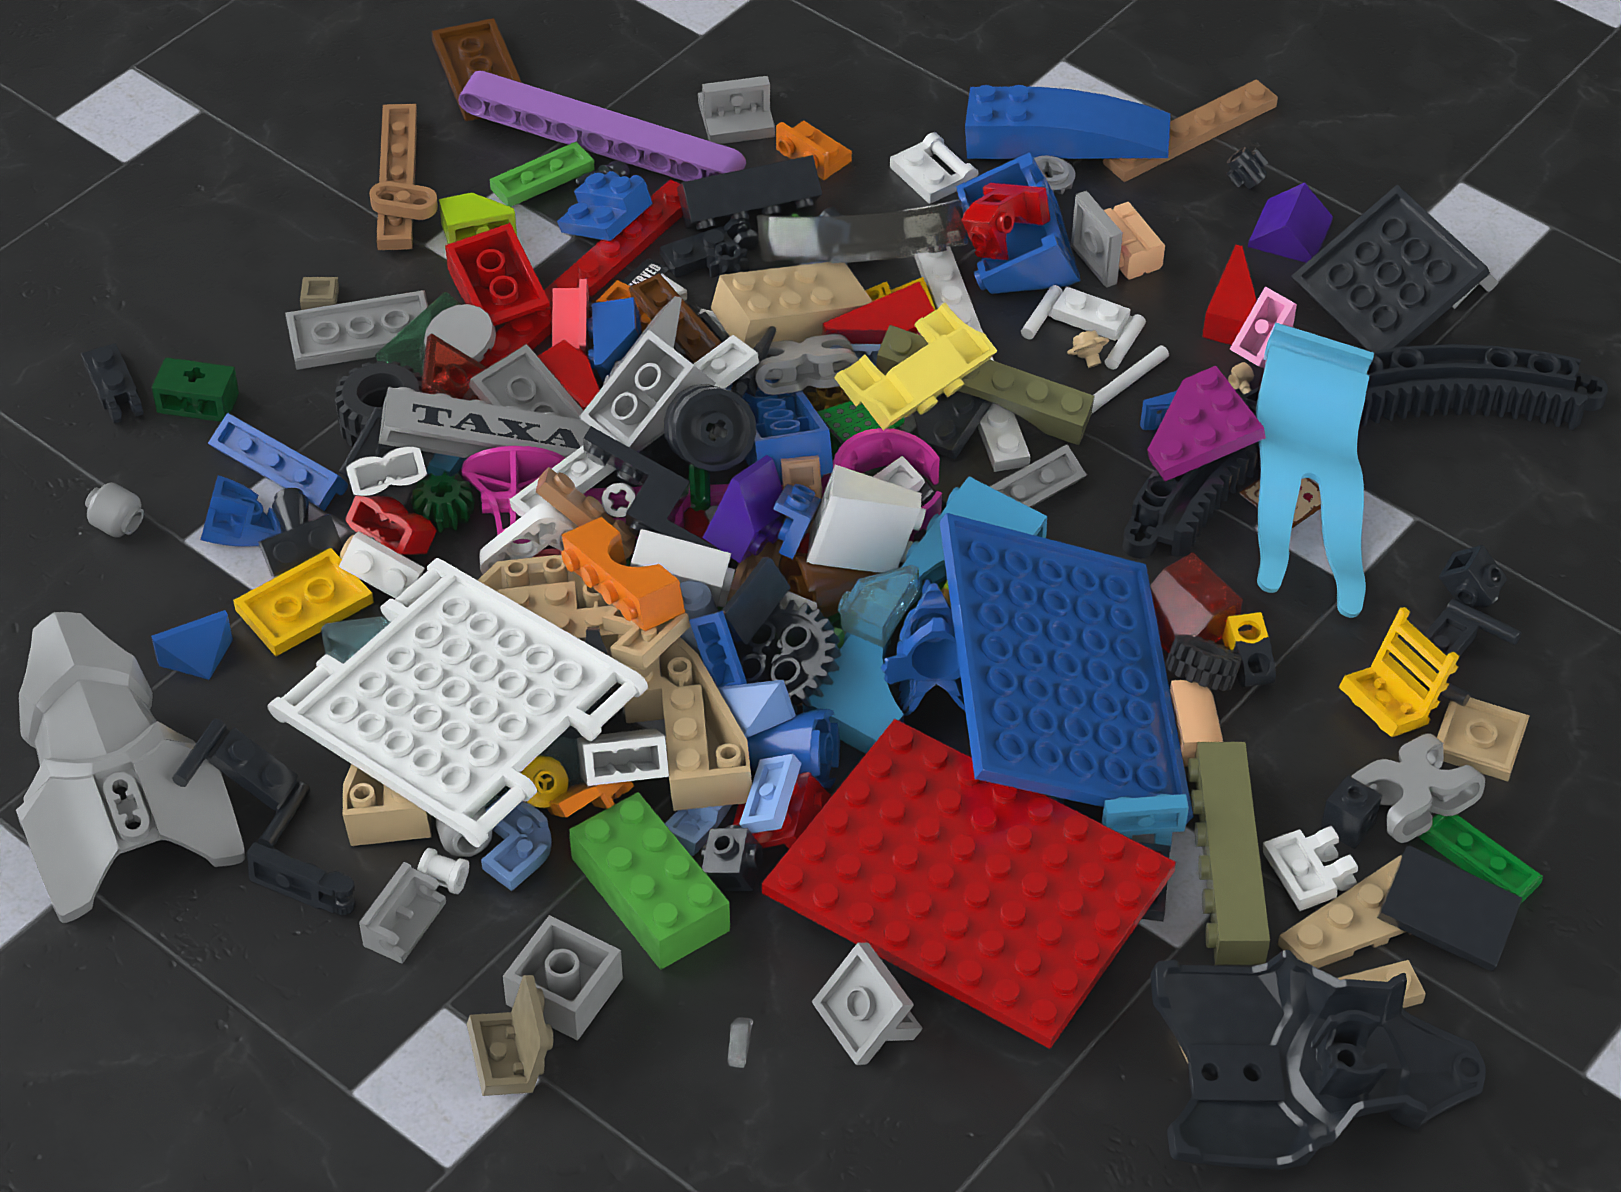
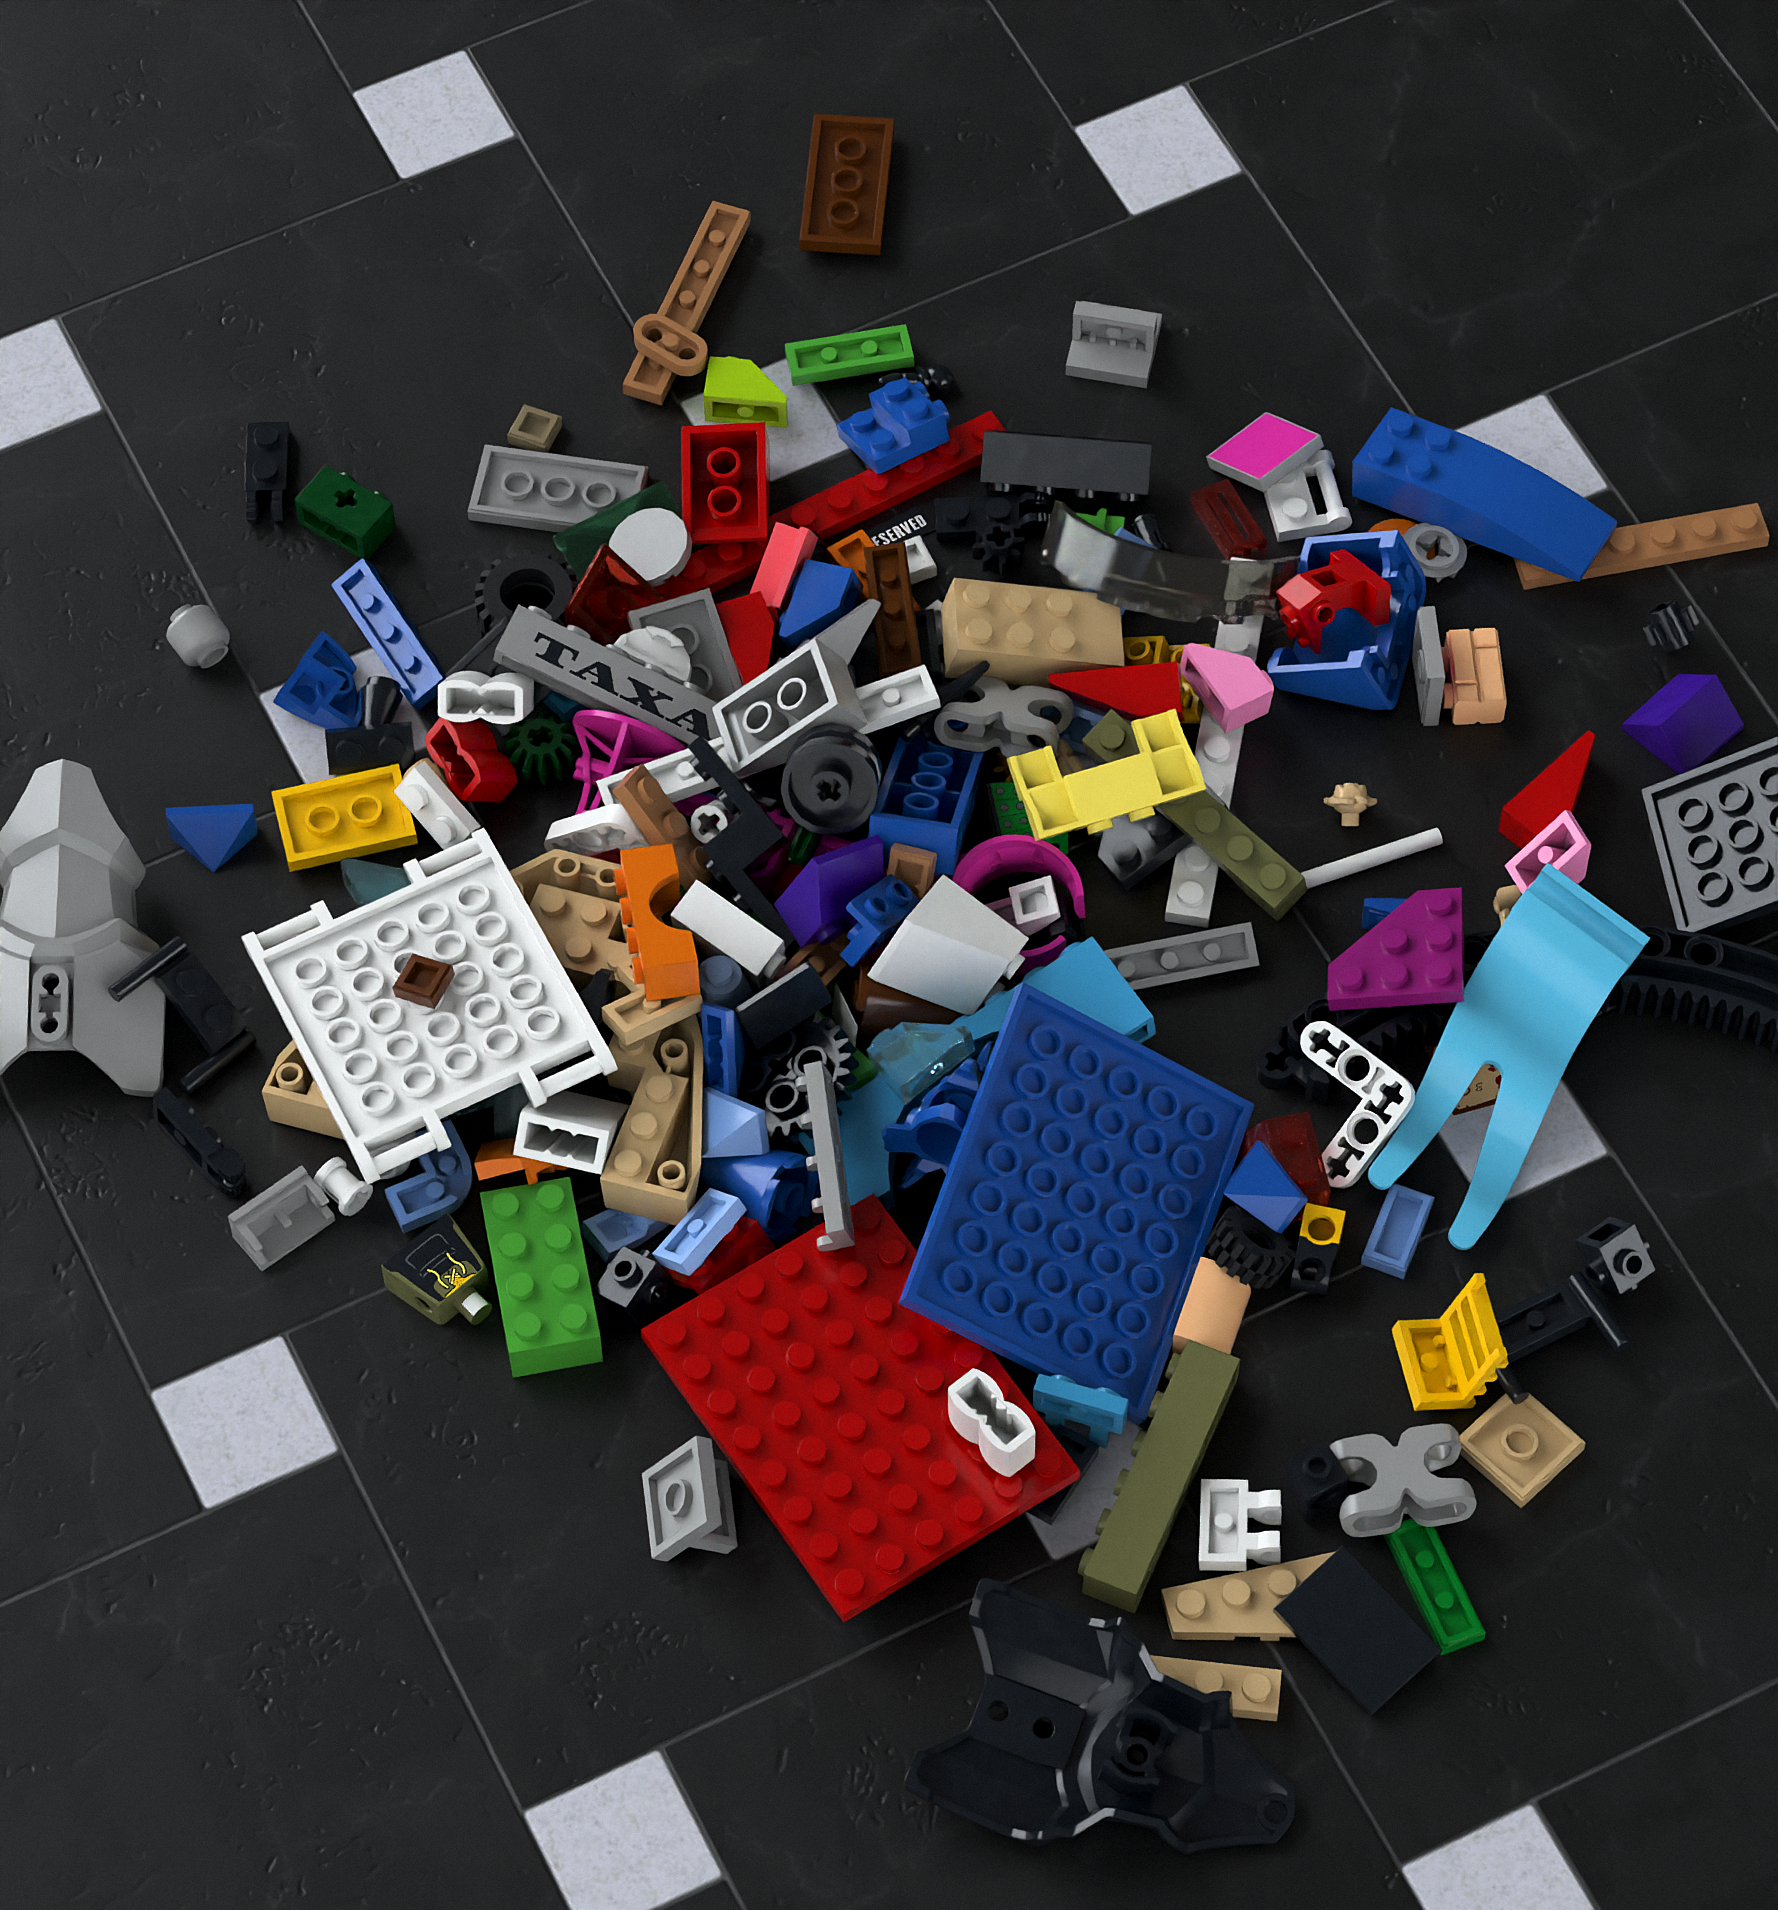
camera: 25 degrees right, 10 degrees up
(449, 678) = (423, 981): none -> reddish brown tile
(509, 394) = (658, 648): none -> white tile
(512, 1044) = (315, 1406): dark tan bracket -> none
(552, 786) = (497, 1123): yellow head -> none
(565, 896) = (440, 1274): none -> torso
(571, 970) = (401, 1353): light grey brick -> none
(596, 129) = (938, 321): medium lavender beam -> none
(739, 1041) = (548, 1488): clear tile -> none
(806, 141) = (1175, 422): orange bracket -> none
(854, 697) = (828, 1158): none -> light grey hinge
(882, 201) = (1241, 546): none -> clear red tile
(891, 145) = (1265, 451): none -> dark pink tile
(963, 289) = (1227, 684): none -> bright pink slope
(1088, 314) = (1379, 759): white plate -> none
(1097, 842) = (996, 1425): none -> white brick
(1194, 614) = (1265, 1189): none -> blue slope
(1228, 522) = (1369, 1089): none -> white beam
(1298, 620) = (1397, 1230): none -> medium blue tile

